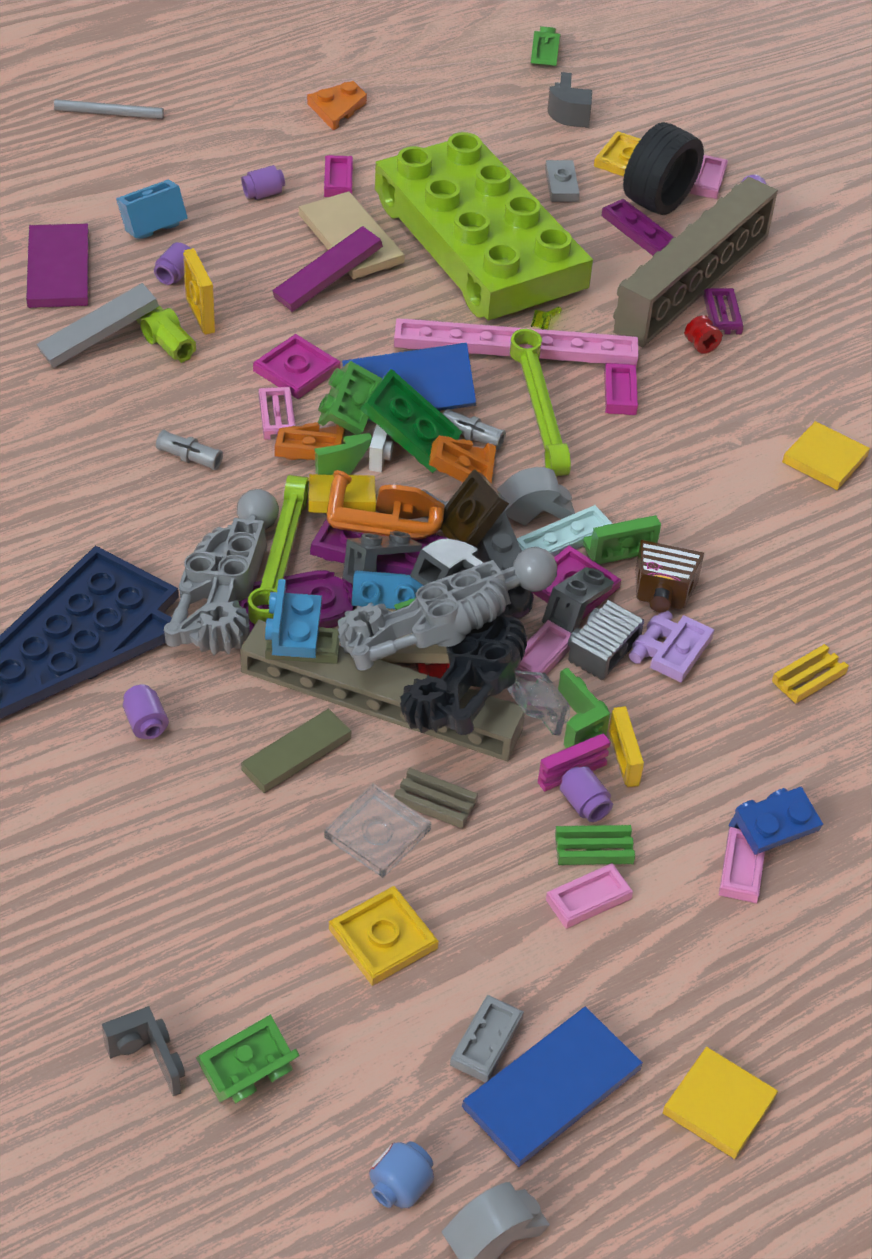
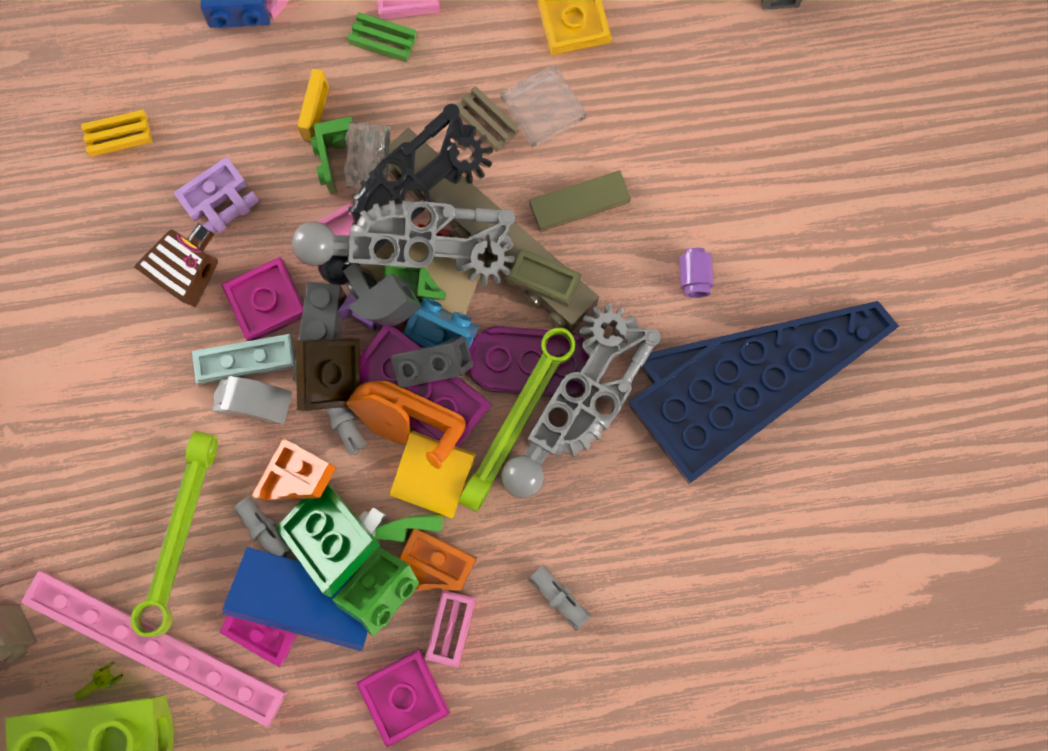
camera: 155 degrees left, 30 degrees up
(294, 623) = (547, 283): dark azure bracket -> none
(573, 595) = (268, 267): dark grey bracket -> none
(586, 793) = (368, 73): medium lavender brick -> none
(588, 753) = (363, 104): dark pink tile -> none
(604, 639) = (270, 217): brick -> none
(620, 389) = (80, 541): dark pink tile -> none
(621, 539) = (196, 322): bright green bracket -> none

